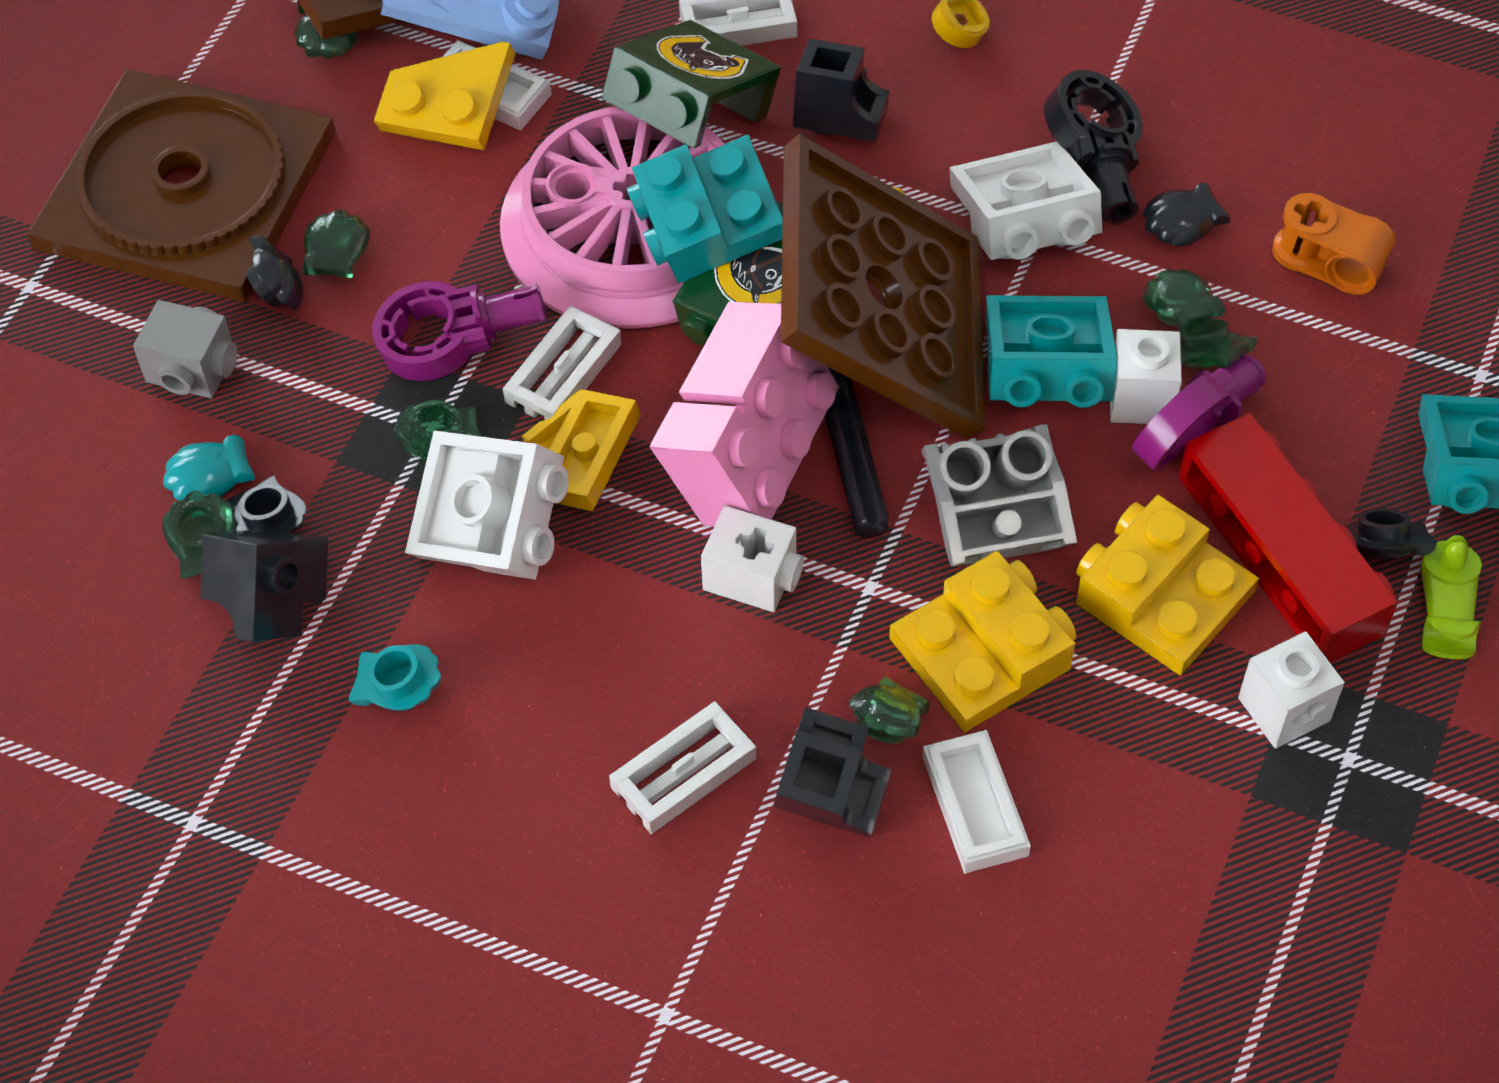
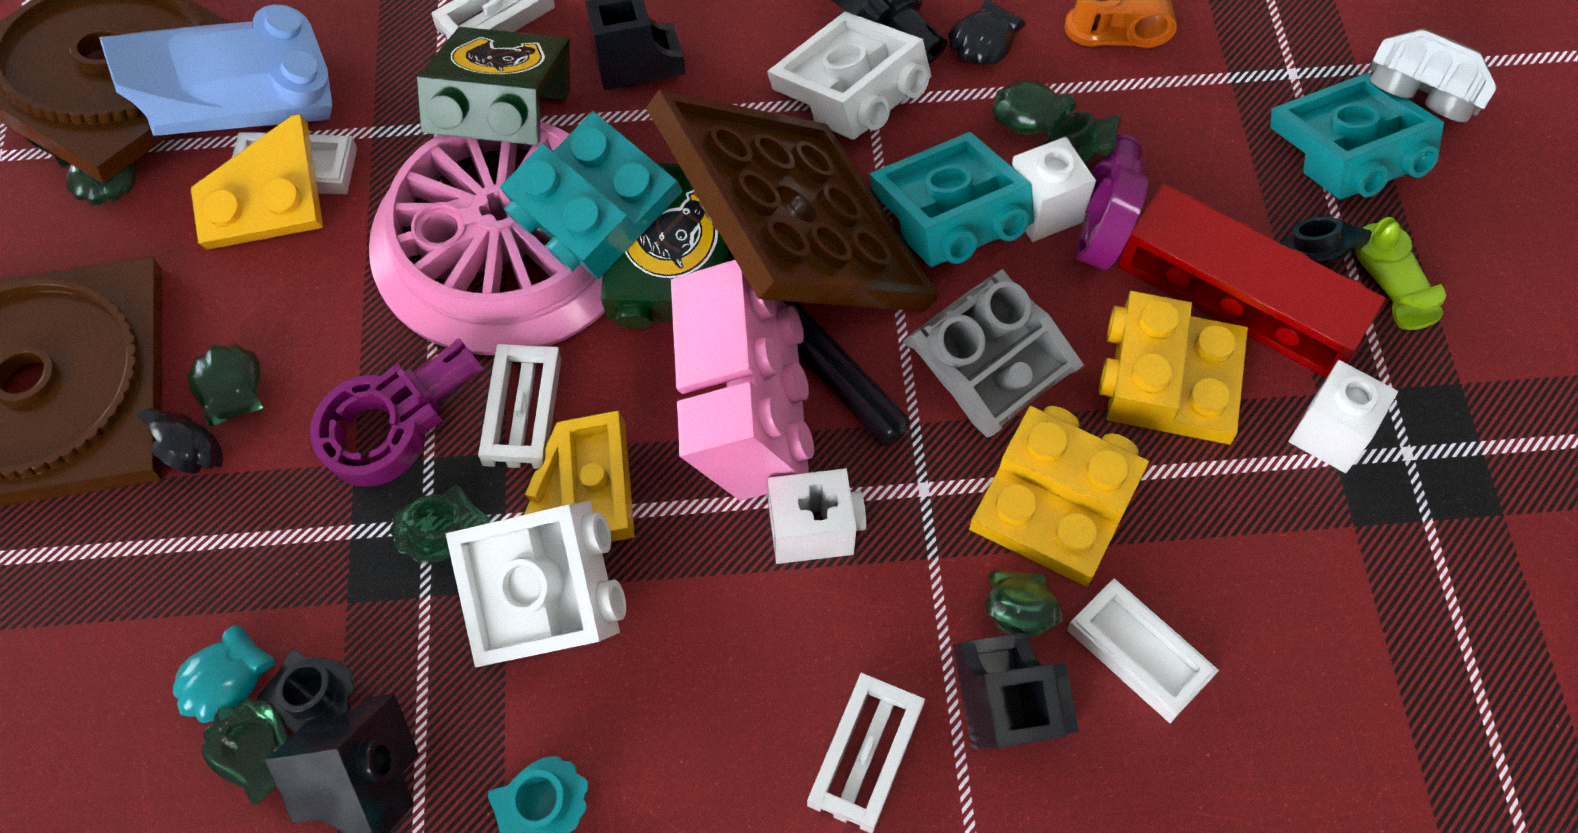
camera: 30 degrees left, 5 degrees up
(185, 349) = (128, 559): light grey brick -> none

